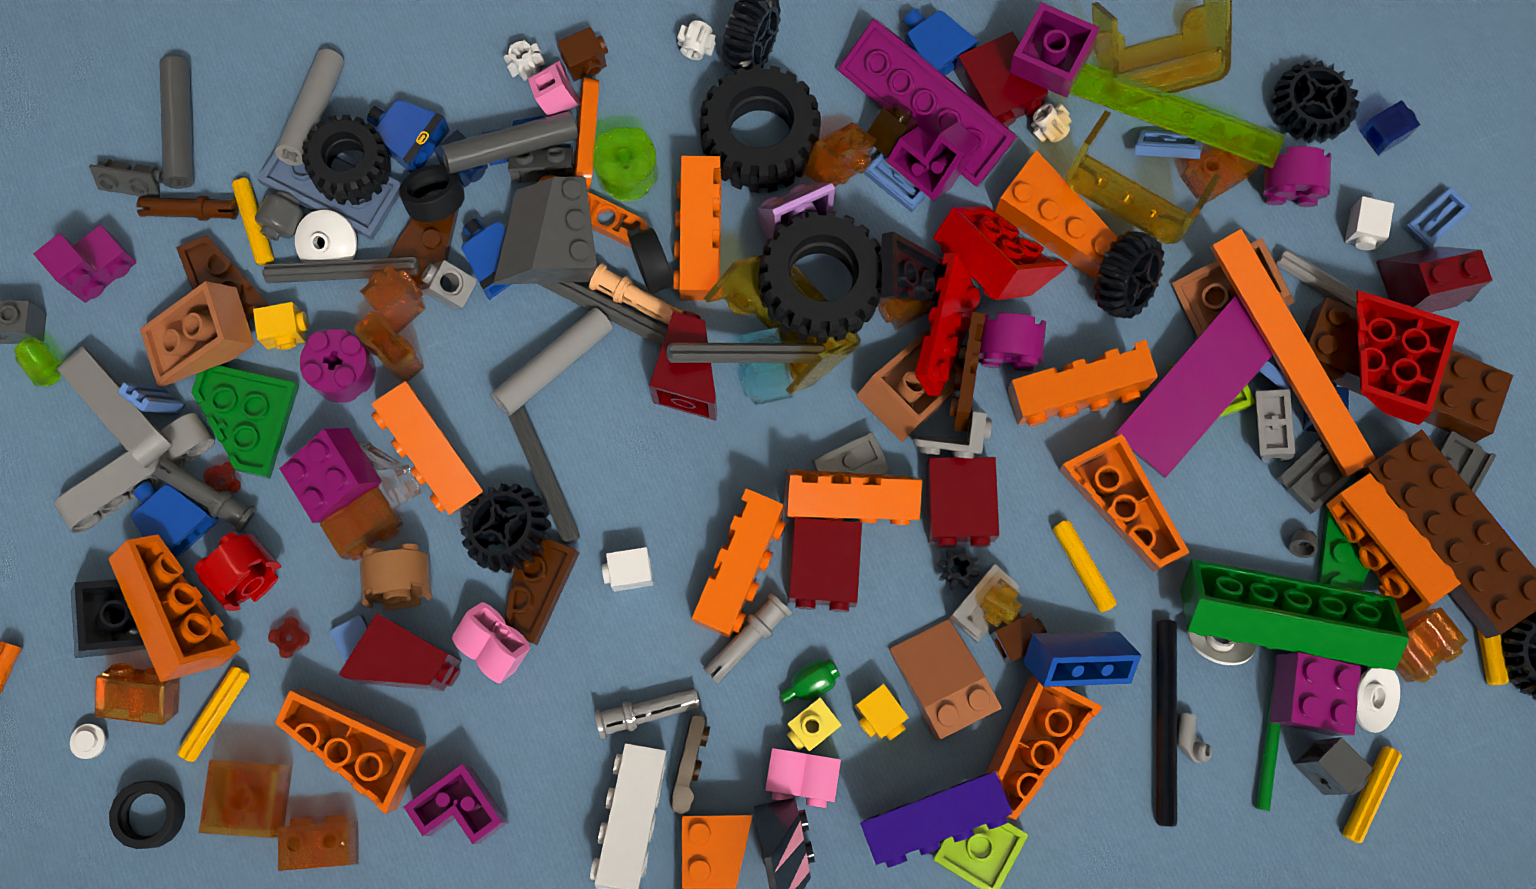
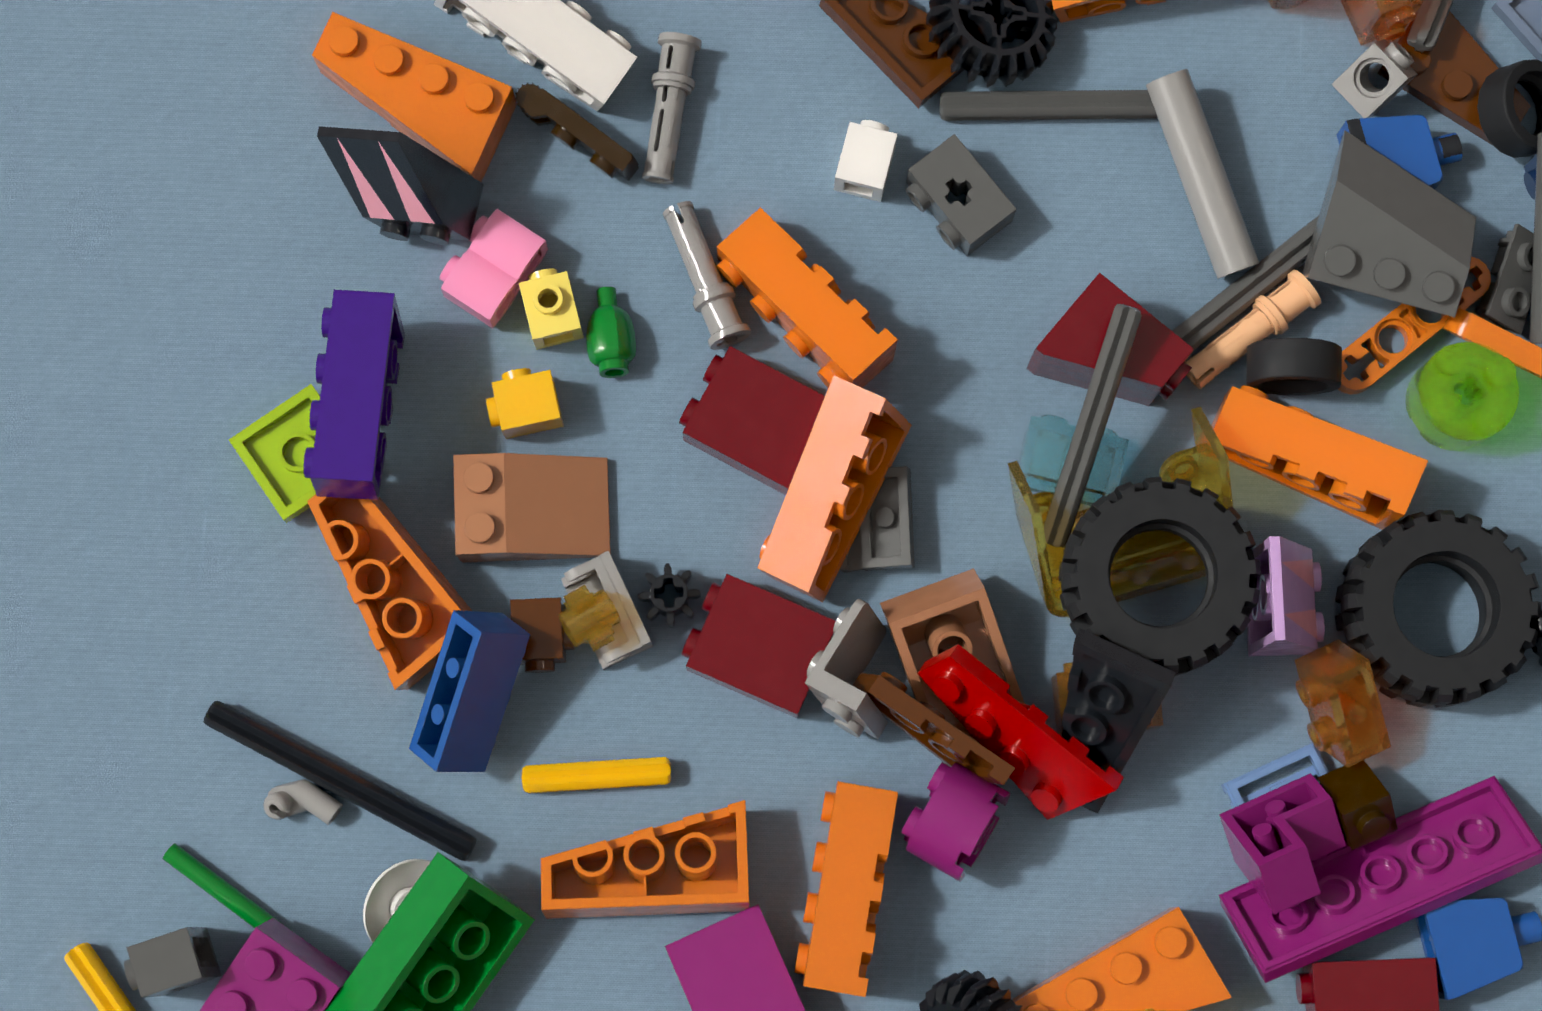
camera: 115 degrees right, 5 degrees up
(627, 483) = (956, 171): none -> dark grey brick
(995, 254) = (1100, 869): red wedge -> none

